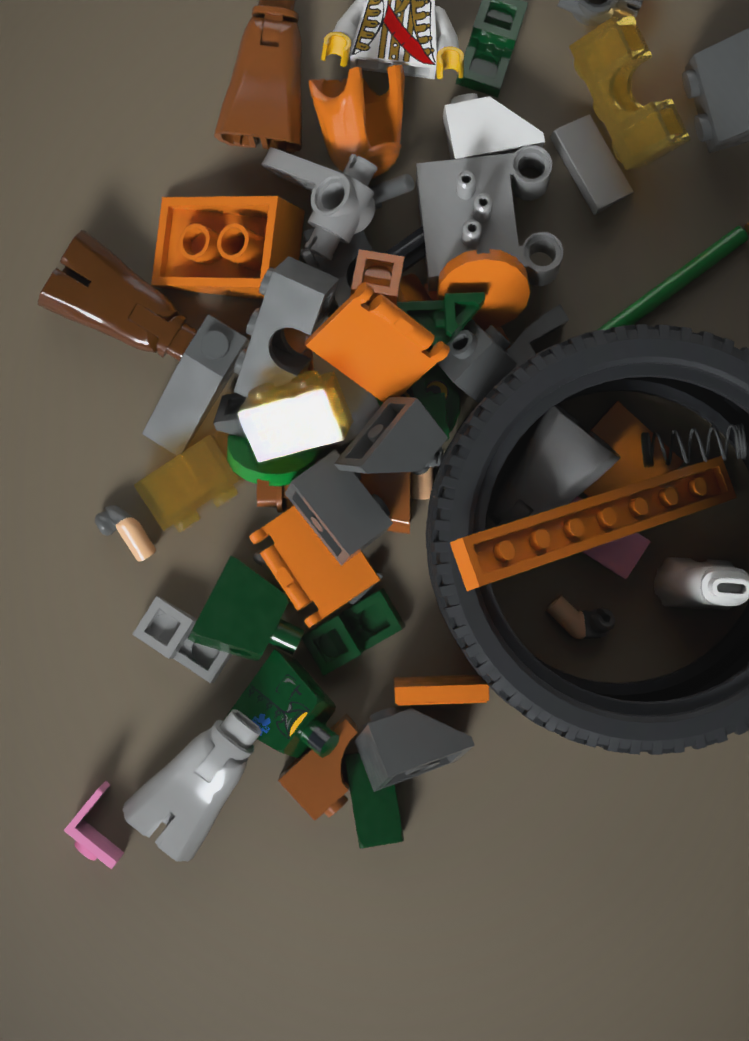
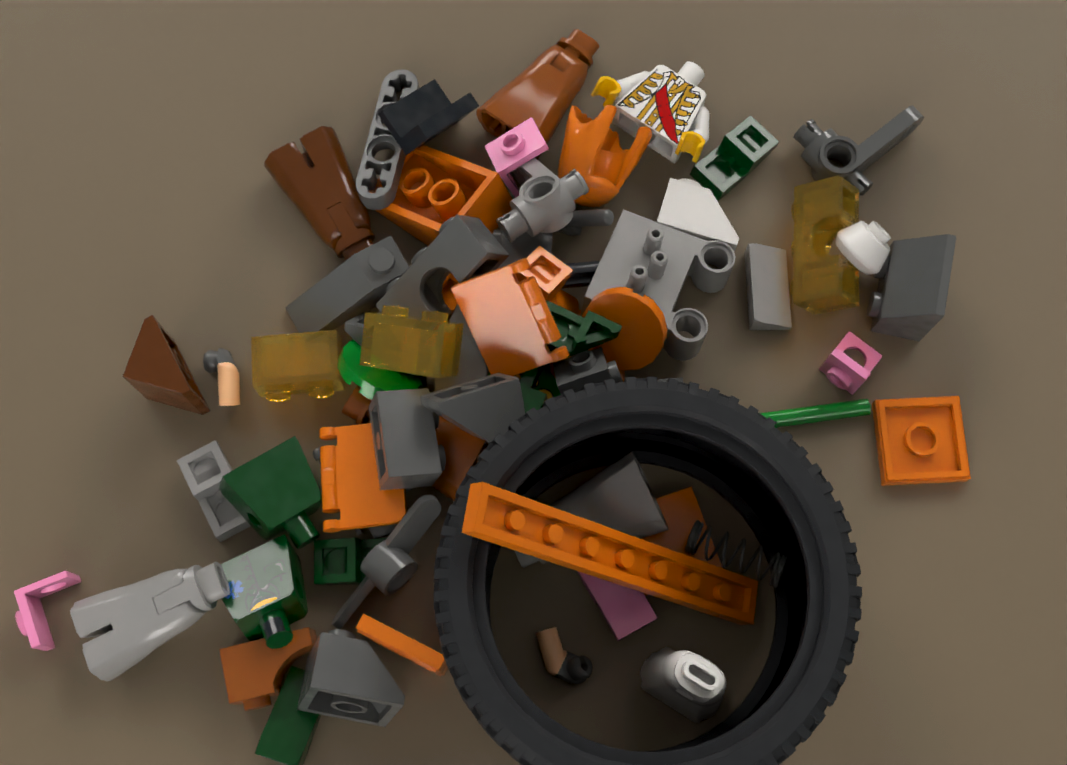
camera: 30 degrees right, 15 degrees down
(70, 560) = (160, 370): none -> reddish brown slope
(140, 211) = (379, 139): none -> dark grey beam
(168, 168) = (424, 115): none -> black panel
(280, 159) = (516, 149): none -> bright pink bracket
(385, 622) = (388, 562): none -> dark grey piece
(668, 75) = (864, 246): none -> white cone
(703, 213) = (846, 372): none -> bright pink bracket

